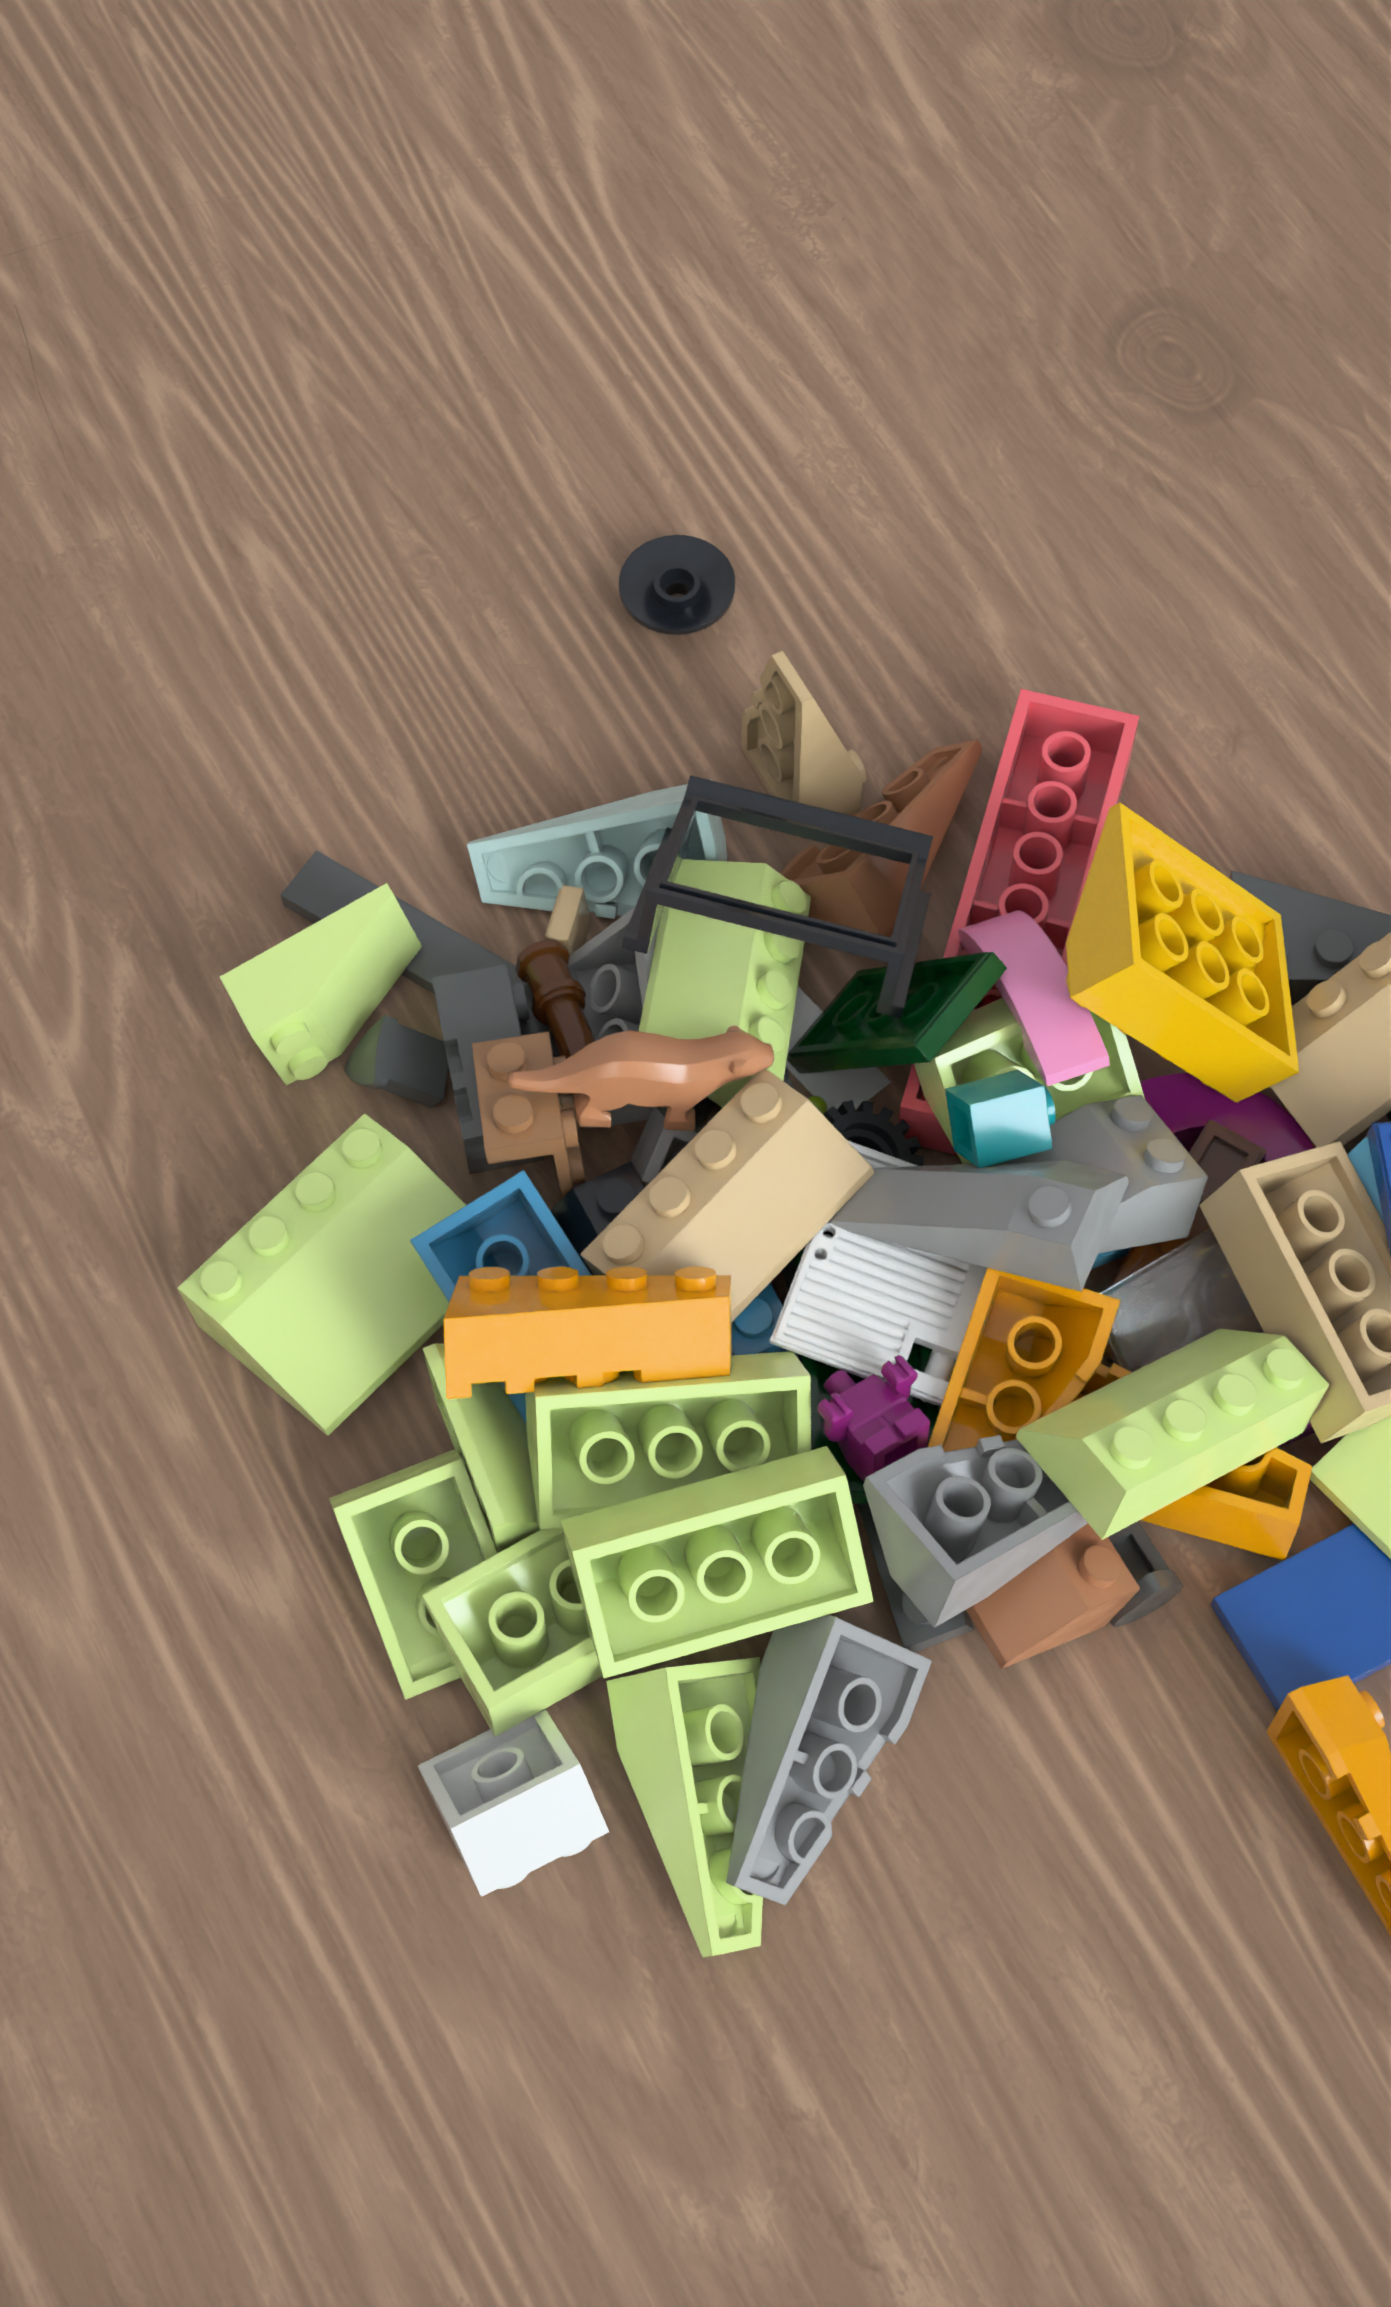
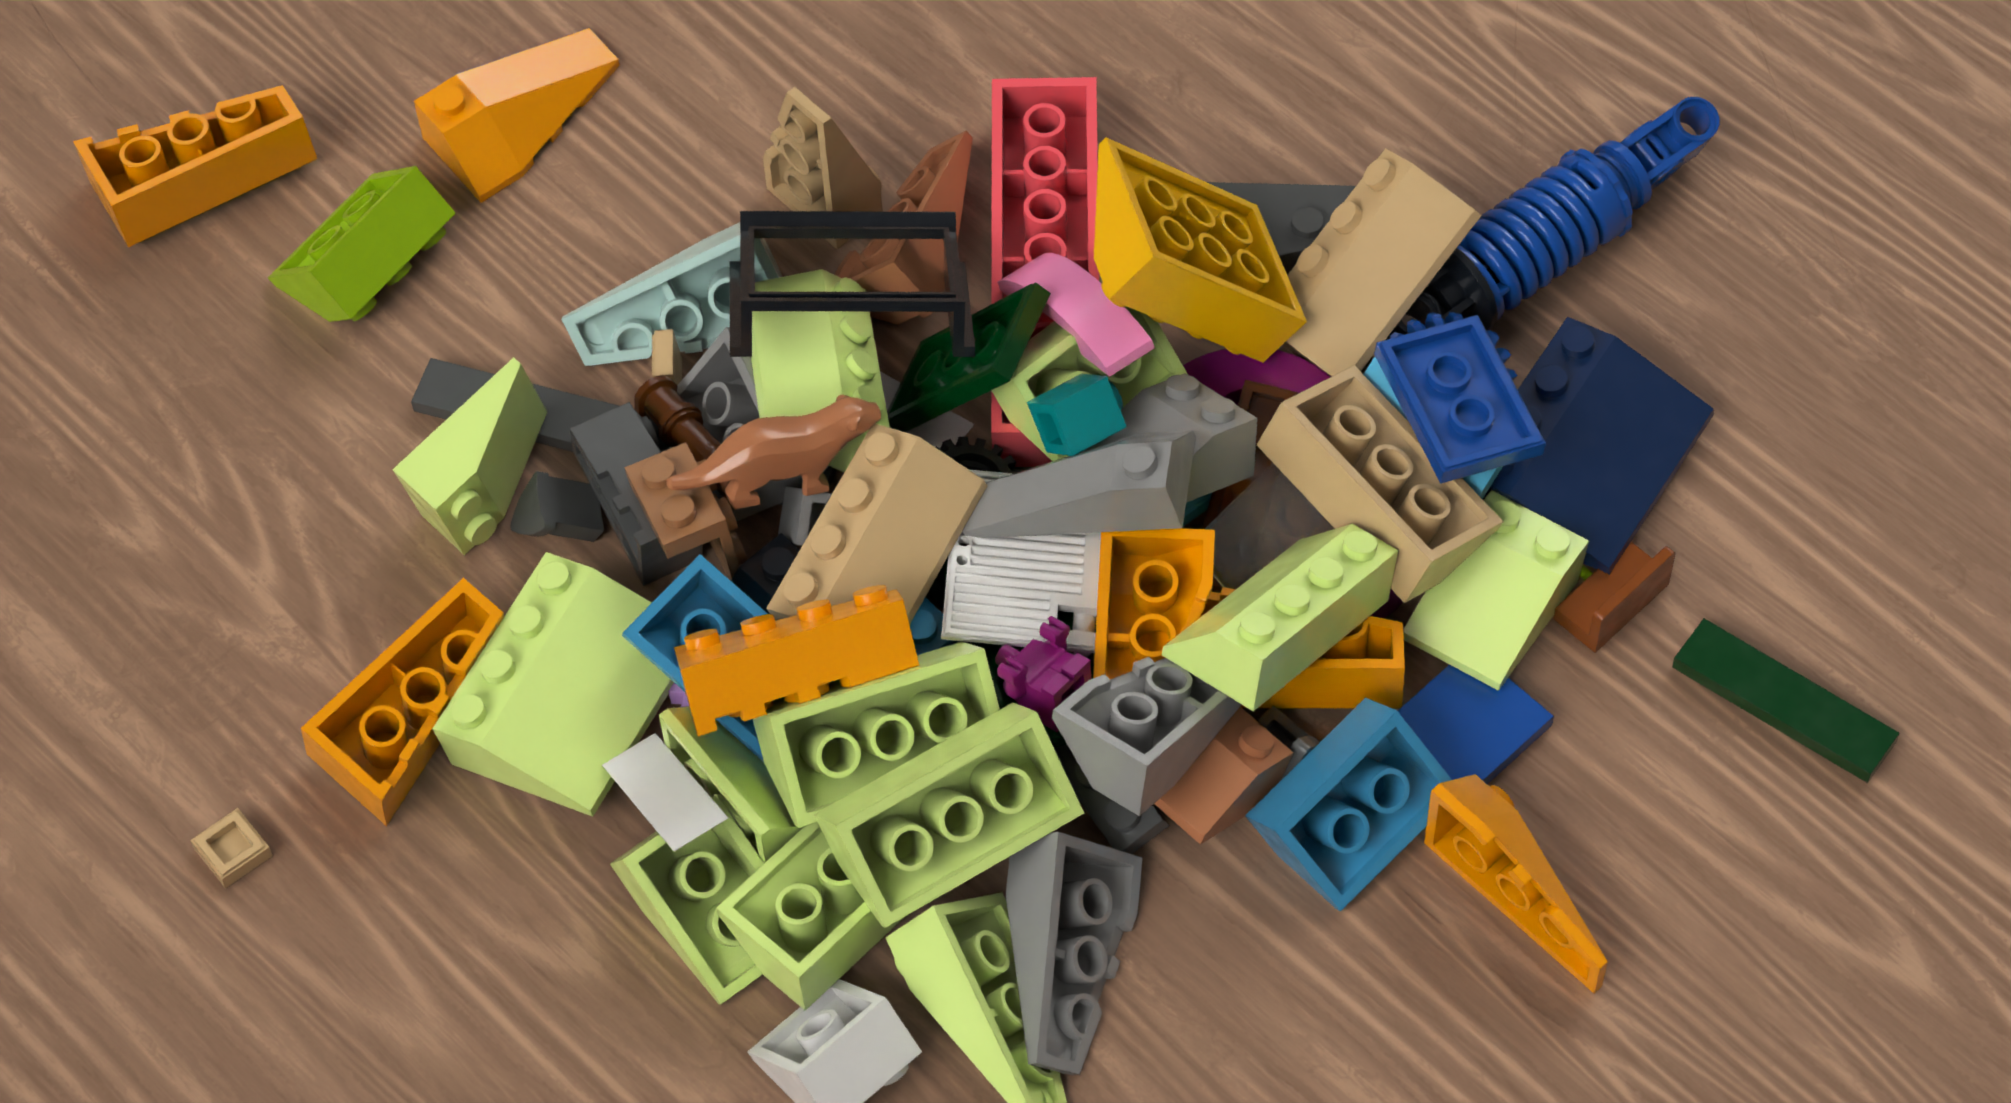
camera: 15 degrees left, 5 degrees down
(128, 1260) = (381, 724): none -> light orange wedge
(131, 566) = (195, 161): none -> light orange wedge
(285, 704) = (365, 244): none -> lime slope
(407, 1438) = (665, 792): none -> white sticker
(482, 589) = (505, 111): none -> light orange wedge
(677, 567) = (669, 52): black dish -> none
(1193, 1666) = (1351, 802): none -> dark azure slope

